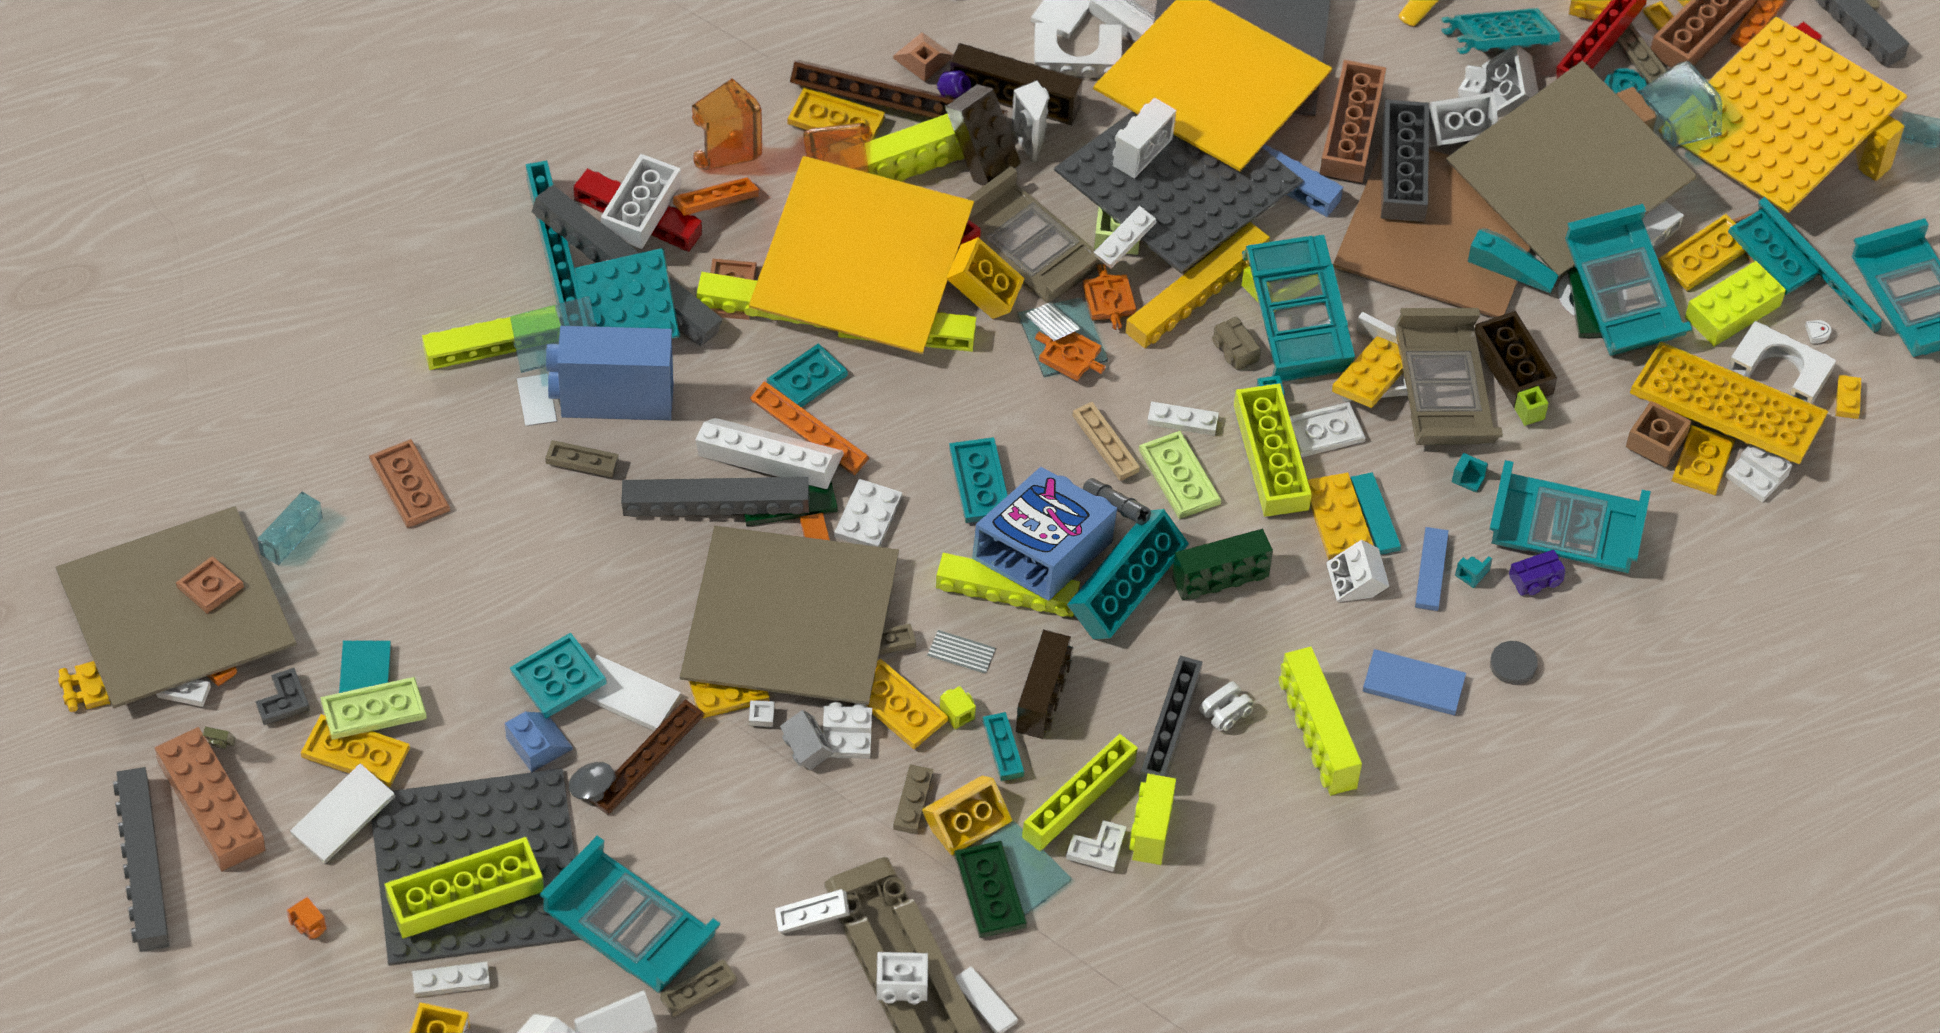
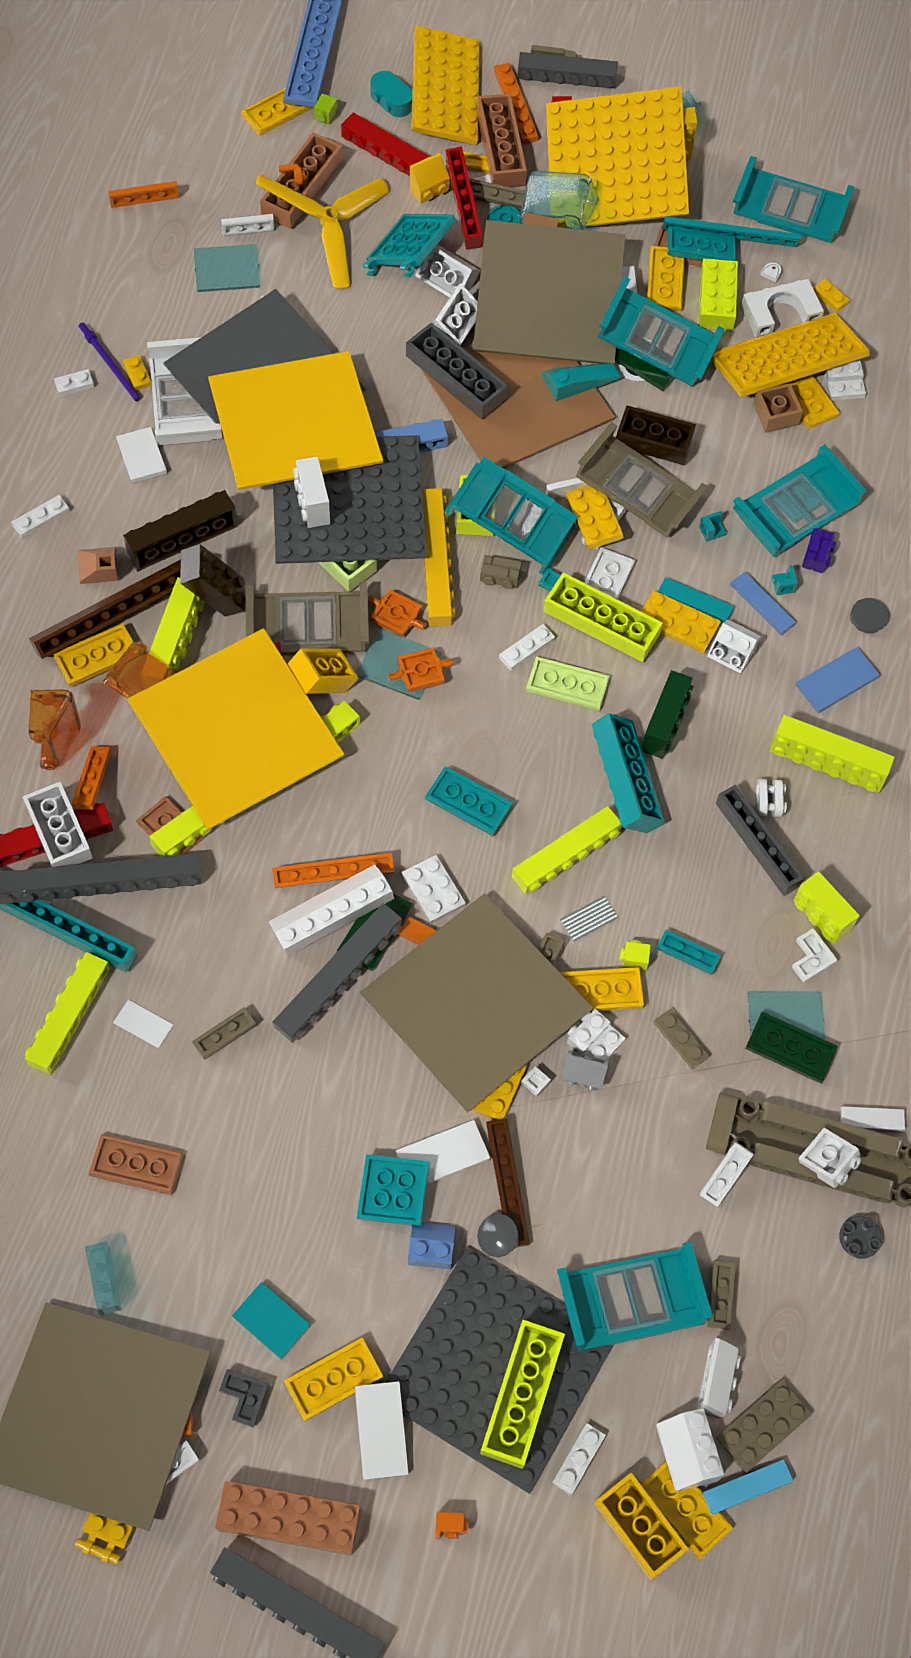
camera: 50 degrees left, 10 degrees up
(209, 584) = (103, 1375): nougat tile -> none
(218, 737) = (245, 1471): olive plate -> none
(373, 708) = (311, 1339): yellowish green tile -> none
(542, 327) = (113, 970): clear light blue piece -> none
(612, 372) = (187, 958): medium blue brick -> none
(630, 292) = (131, 901): teal plate -> none
(808, 375) = (287, 838): teal tile -> none
(953, 84) = (147, 565): dark purple head -> none
(967, 814) = (723, 1015): yellow slope -> none
(1030, 118) = (224, 542): white slope -> none
(1044, 533) = (559, 796): medium blue brick -> none
(1044, 684) = (668, 890): dark brown brick -> none
(1050, 56) = (176, 495): white arch -> none
(1052, 321) = (386, 660): sticker -> none
(1079, 792) = (768, 935): neon yellow brick -> none
(1106, 441) = (506, 704): tan plate -> none
(1125, 237) = (371, 566): white plate -> none
(1126, 506) = (568, 735): dark grey piece -> none
(1352, 121) = (395, 373): nougat brick -> none
(1474, 82) = (428, 290): white bracket -> none
(1531, 406) = (697, 454): lime brick -> none

